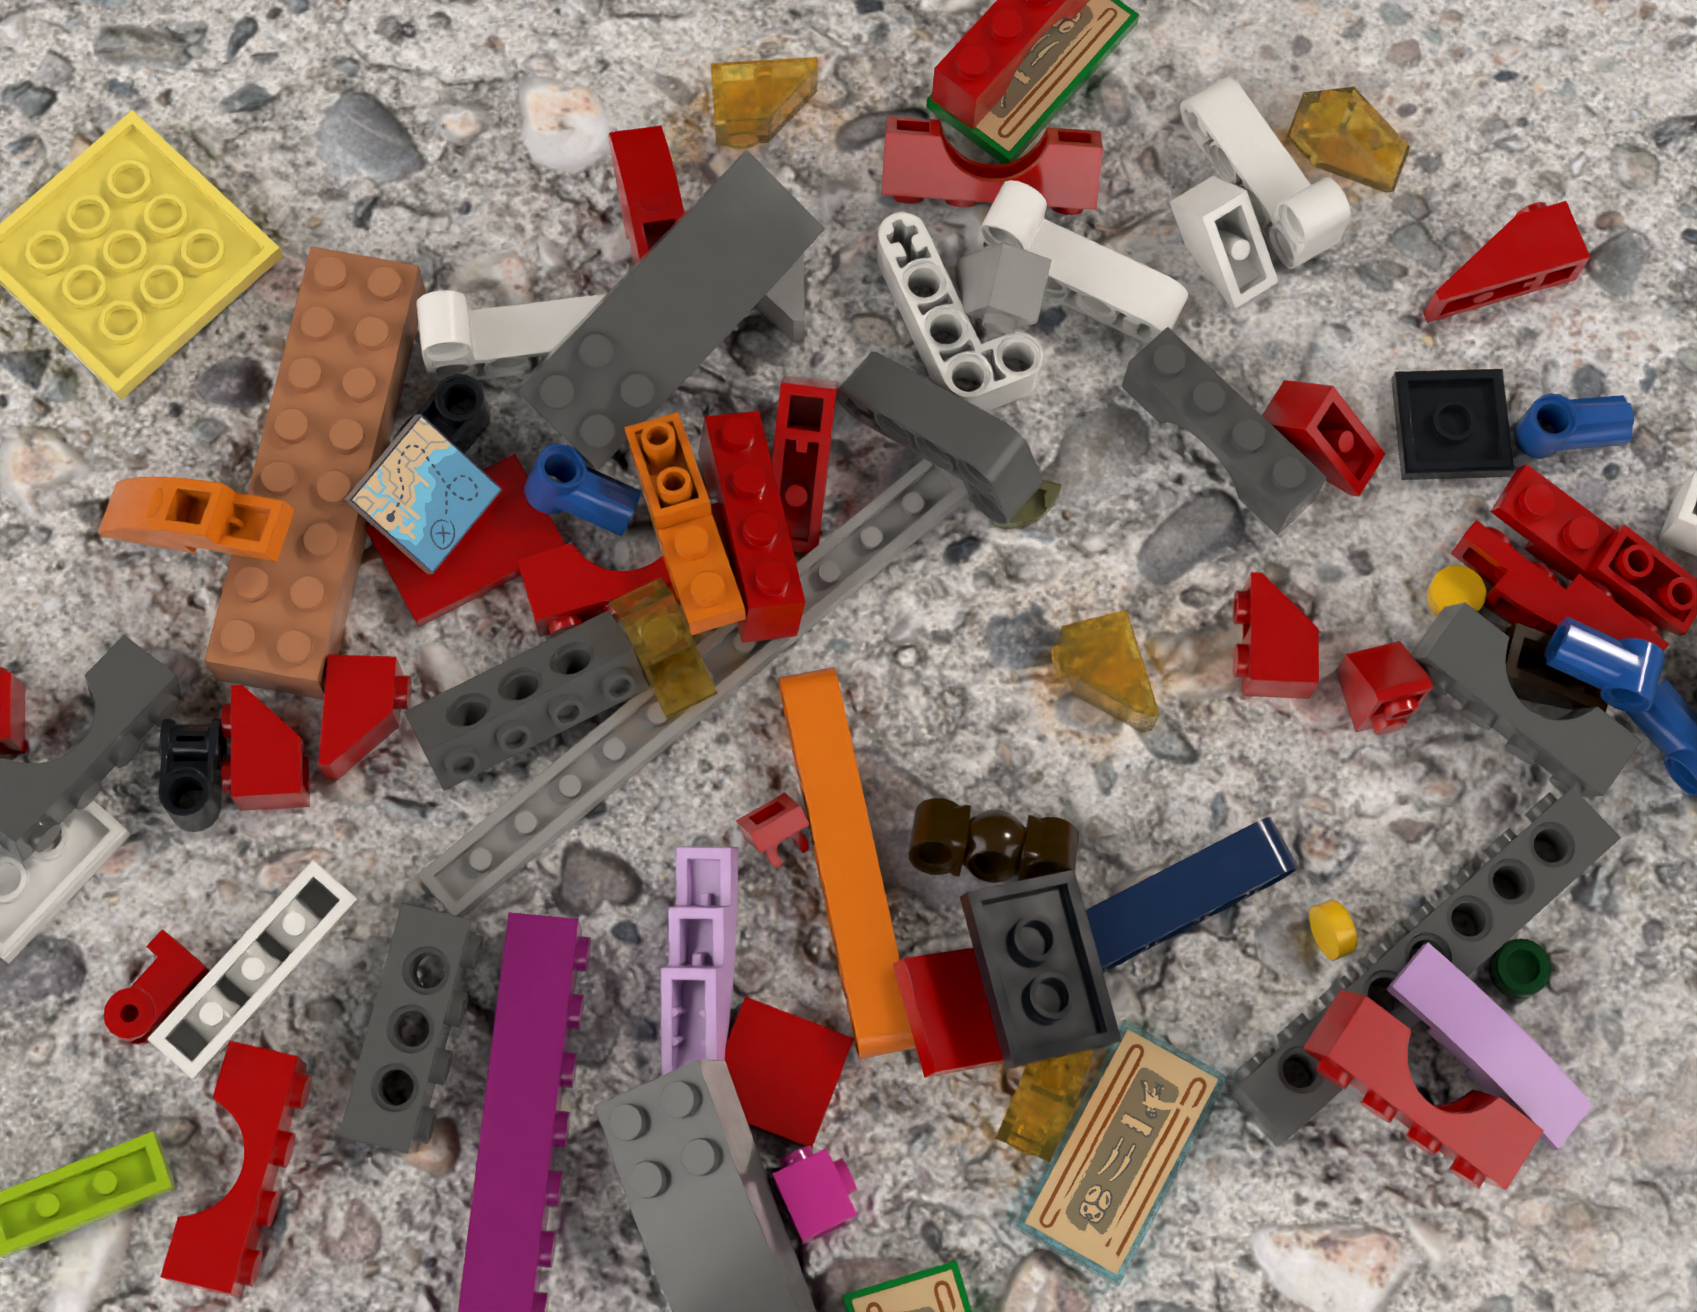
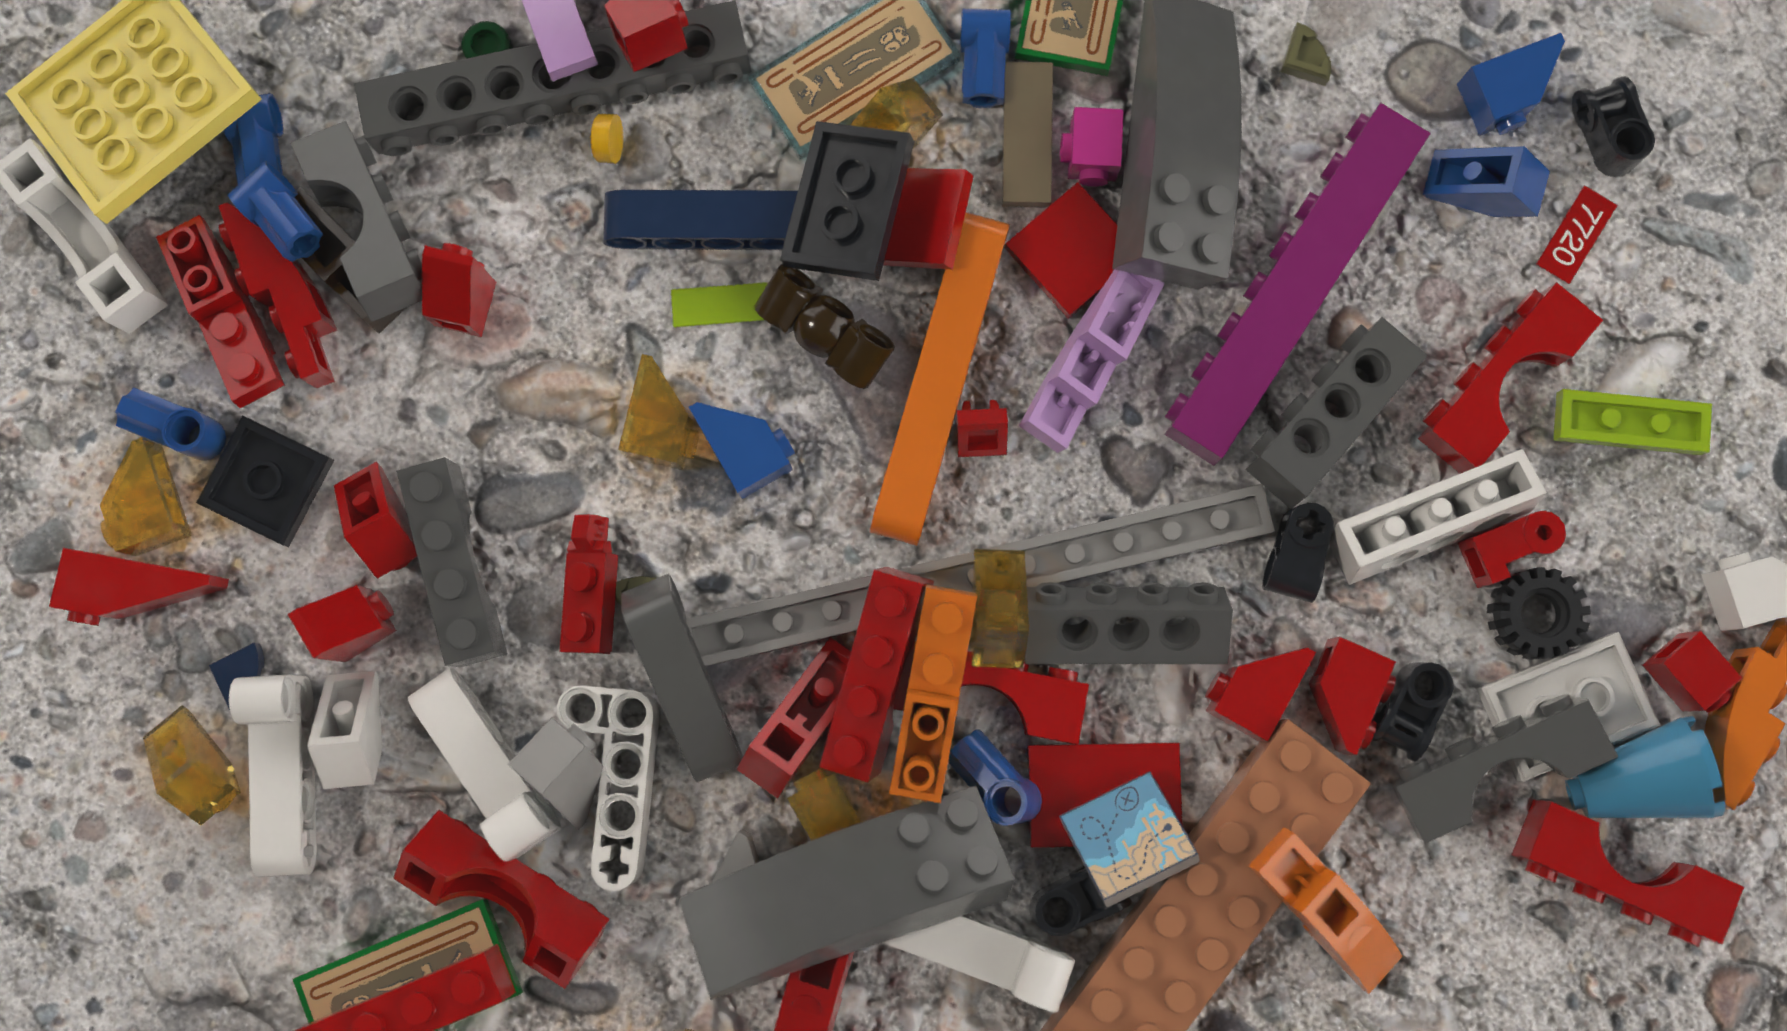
camera: 145 degrees left, 10 degrees up
(70, 914) = (1567, 608): none -> black tyre
(380, 862) = (1296, 562): none -> black piece
(733, 381) = (823, 804): none -> clear yellow slope
(894, 1177) = (1027, 135): none -> dark tan tile
(994, 1250) = (984, 45): none -> blue piece
(1008, 685) = (744, 447): none -> blue slope
(1077, 476) = (589, 588): none -> red hinge
(1120, 825) = (716, 304): none -> lime sticker
(1277, 643) = (516, 371): red slope -> none
(1287, 320) = (344, 623): none -> red slope
(1361, 243) = (242, 663): none -> dark blue tile
(1455, 586) = (352, 343): yellow tile -> none
(1548, 340) = (143, 502): none -> clear yellow slope

